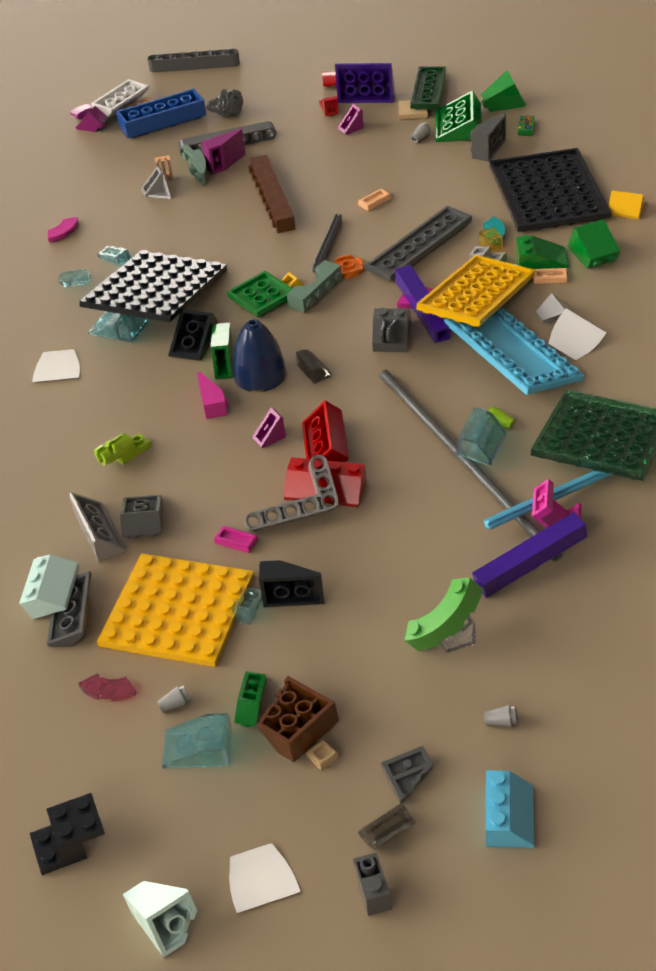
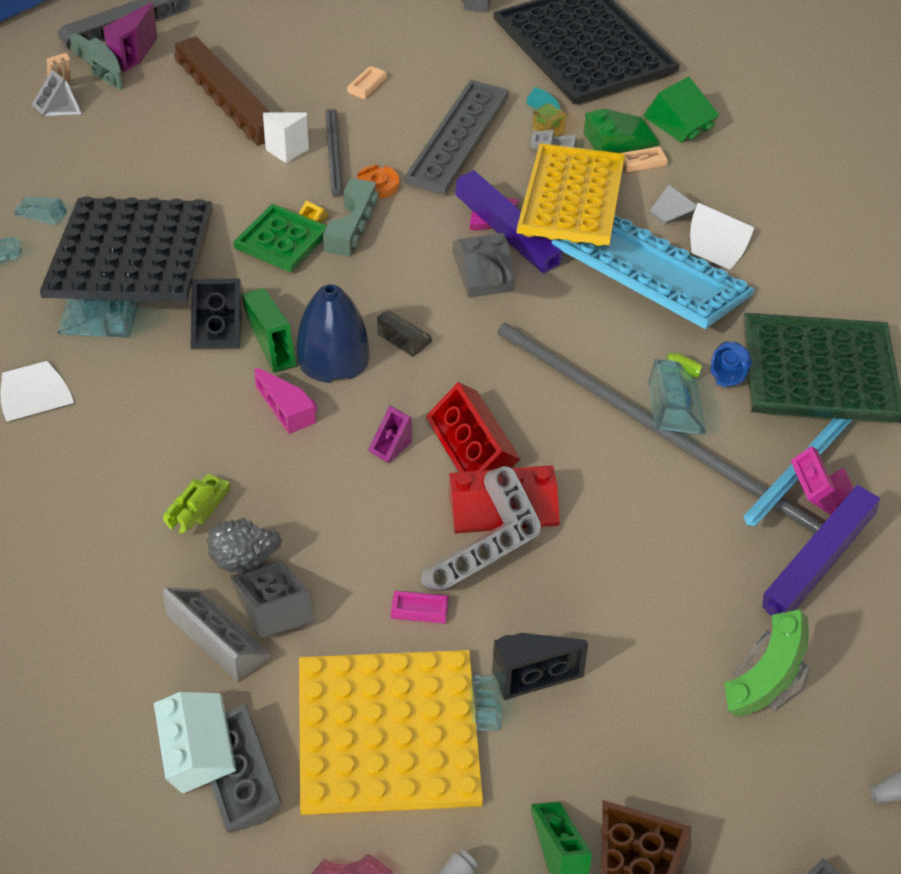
camera: 25 degrees left, 5 degrees up
(134, 478) = (241, 545): none -> dark grey piece
(295, 226) = (286, 134): none -> white slope
(533, 420) = (730, 364): none -> blue hair
(626, 204) = (690, 51): yellow slope -> none

